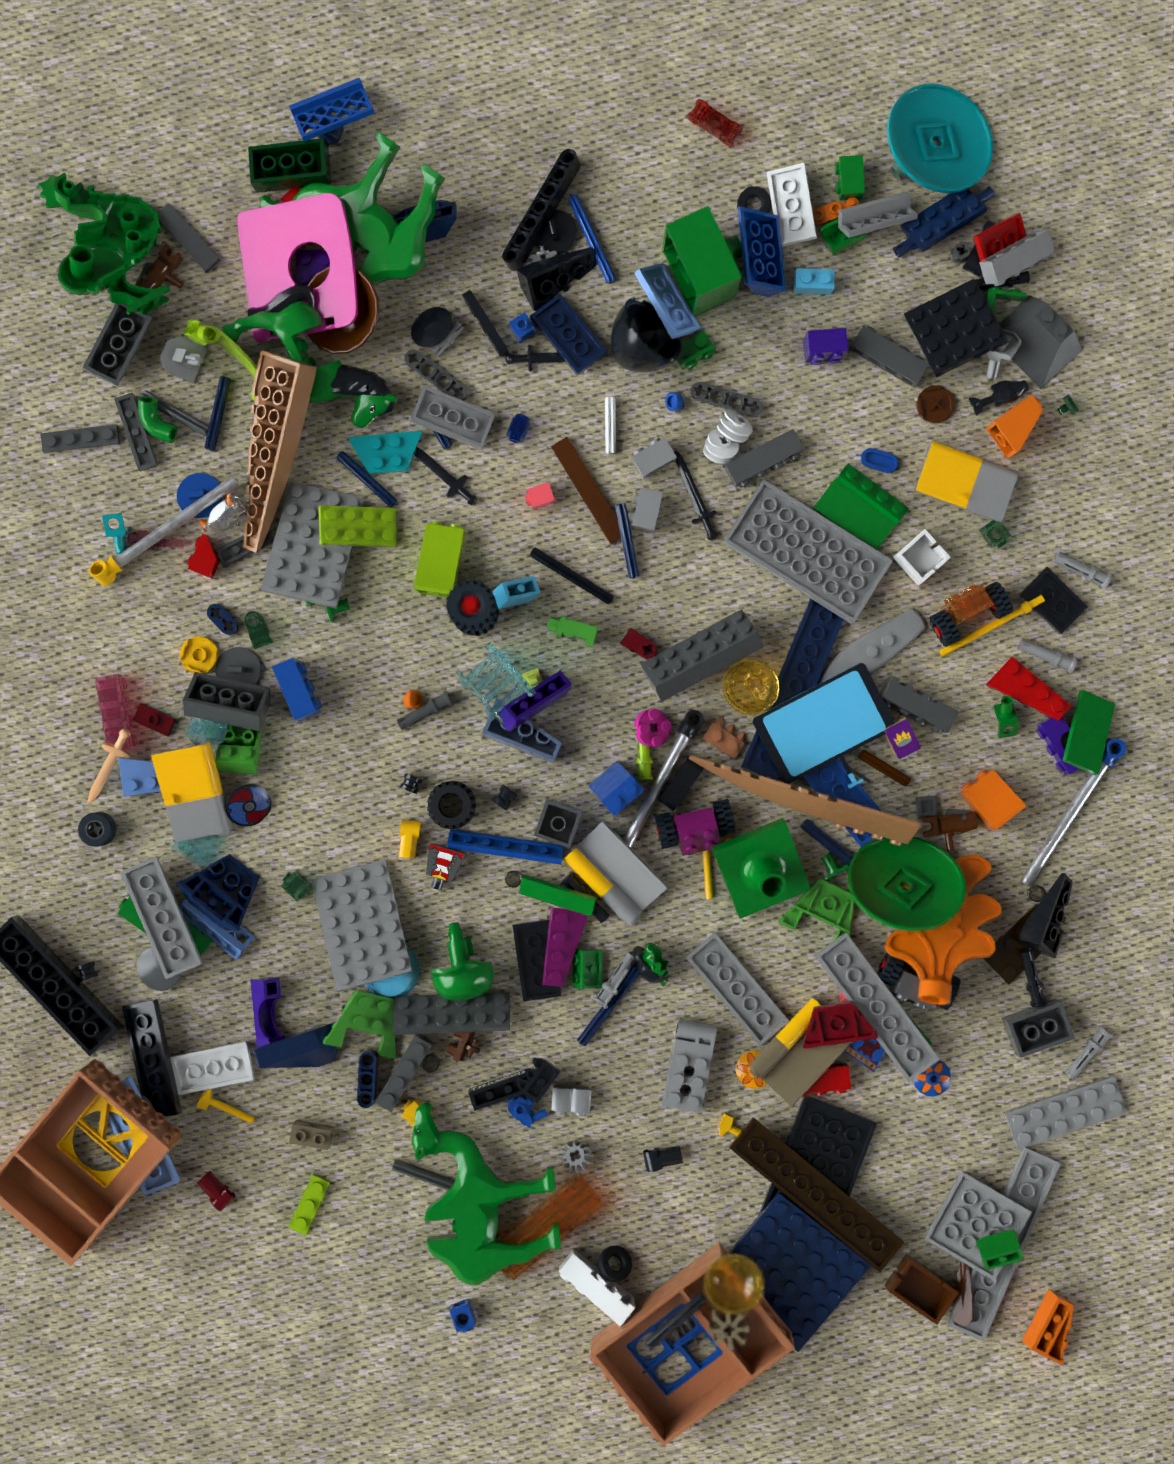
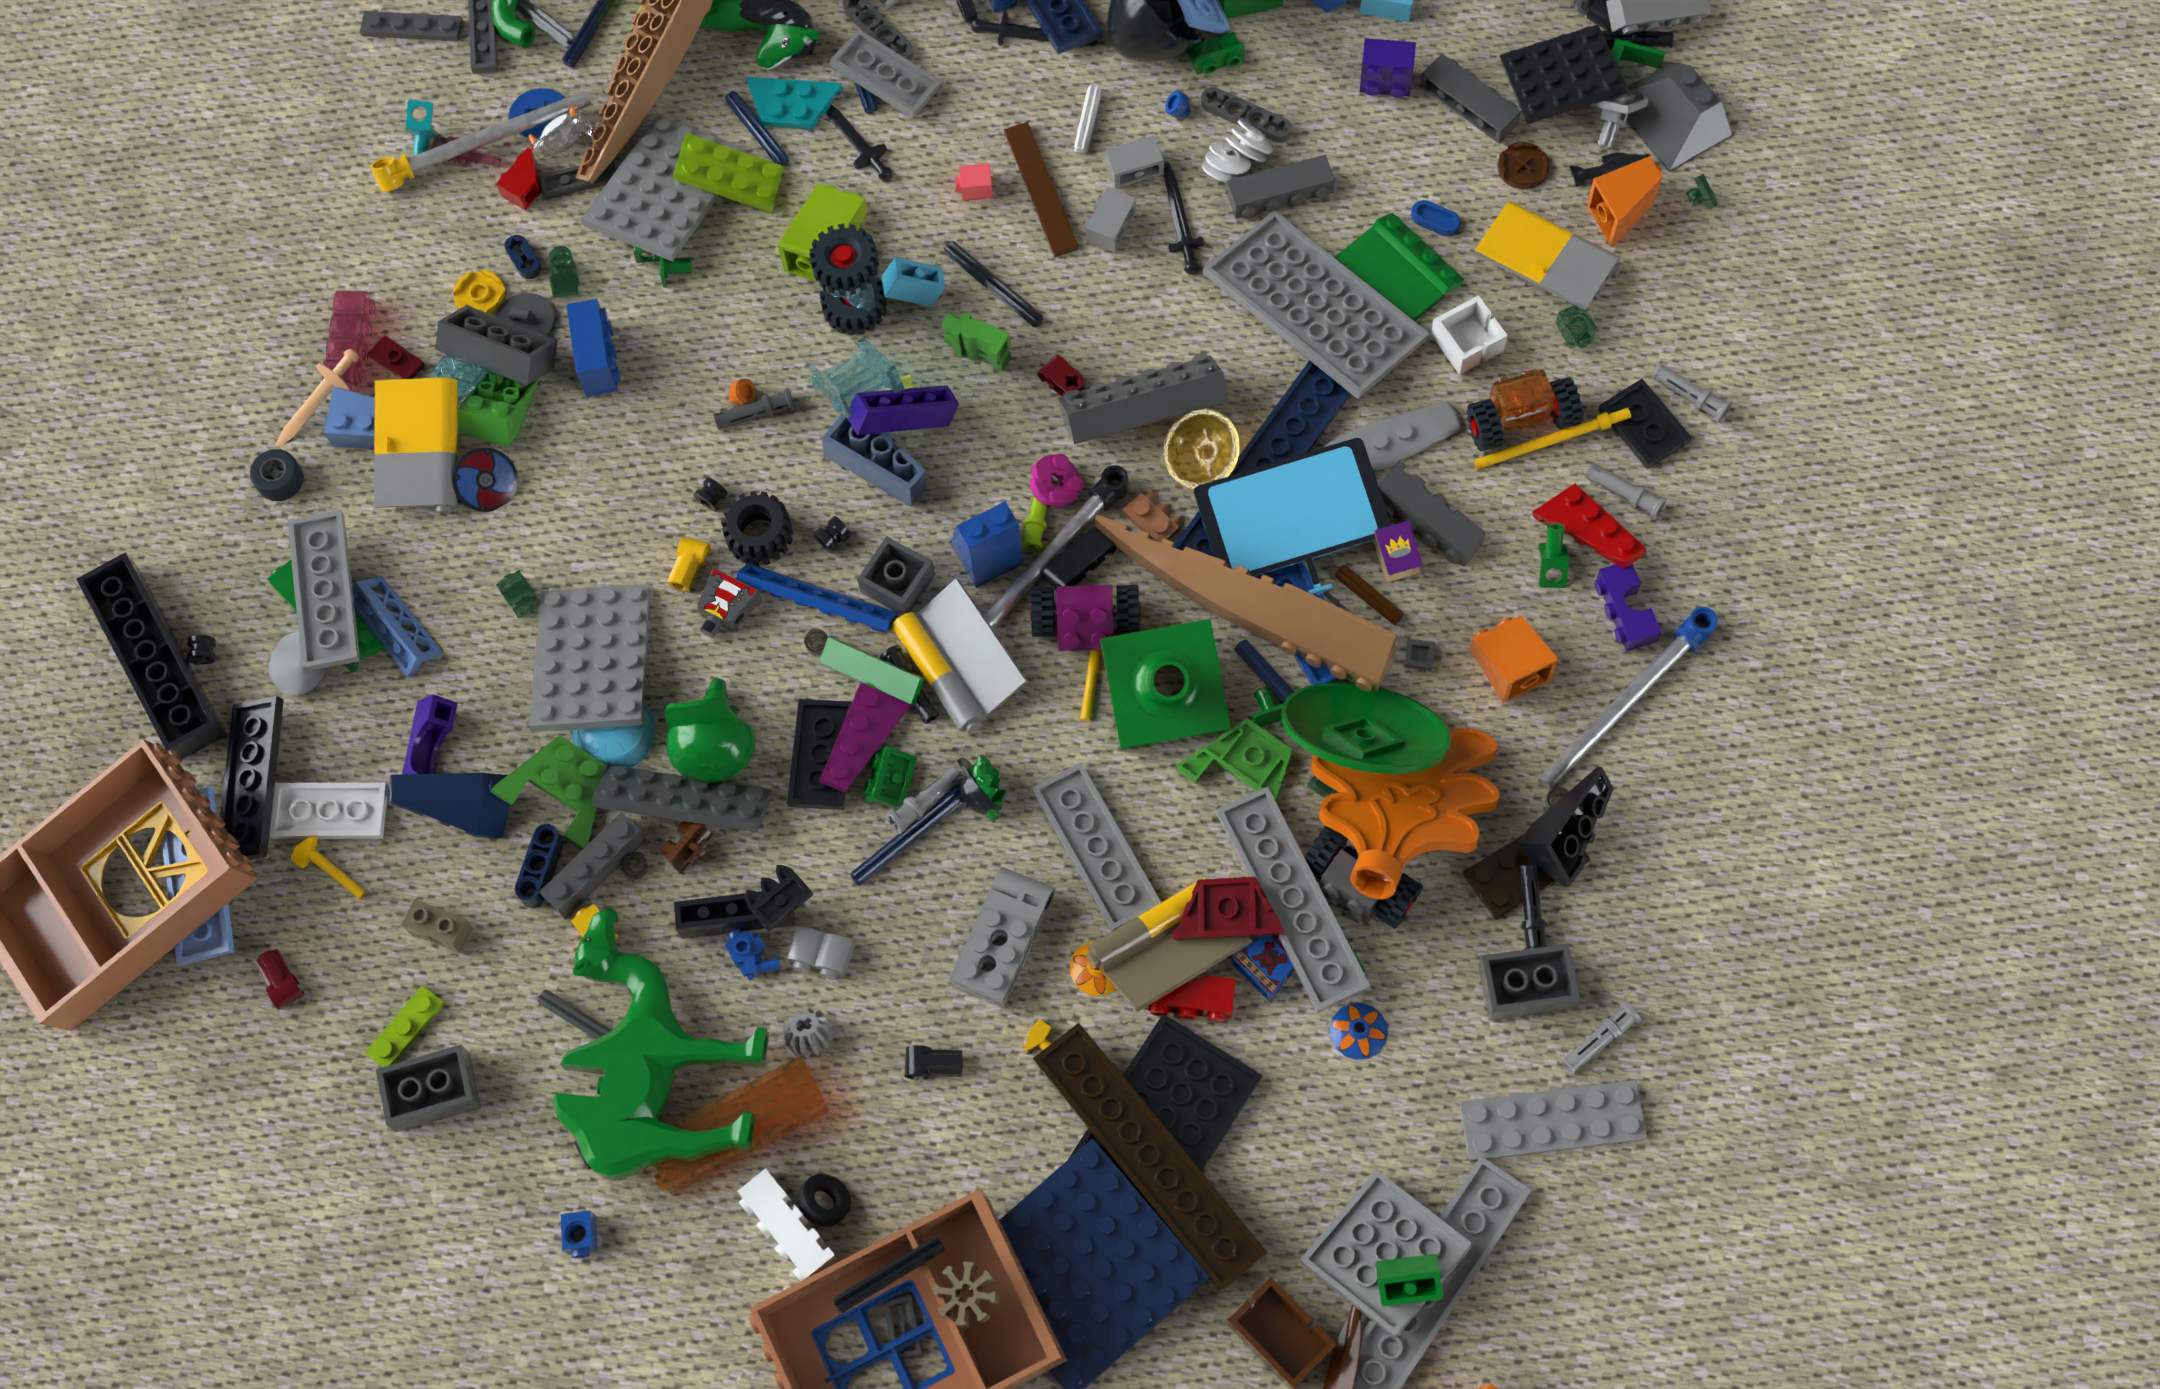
camera: 20 degrees right, 20 degrees down
(199, 850) = (403, 525): clear light blue wing -> none
(221, 891) = (412, 578): dark blue wedge -> none
(338, 1245) = (428, 1088): none -> dark grey brick
(518, 428) = (967, 101): clear blue brick -> none
(627, 540) = (1076, 252): dark blue axle -> none
(738, 1294) = (968, 1208): clear yellow hat -> none
(951, 823) = (1450, 681): reddish brown piece -> none
(1088, 732) = (1667, 592): green tile -> none

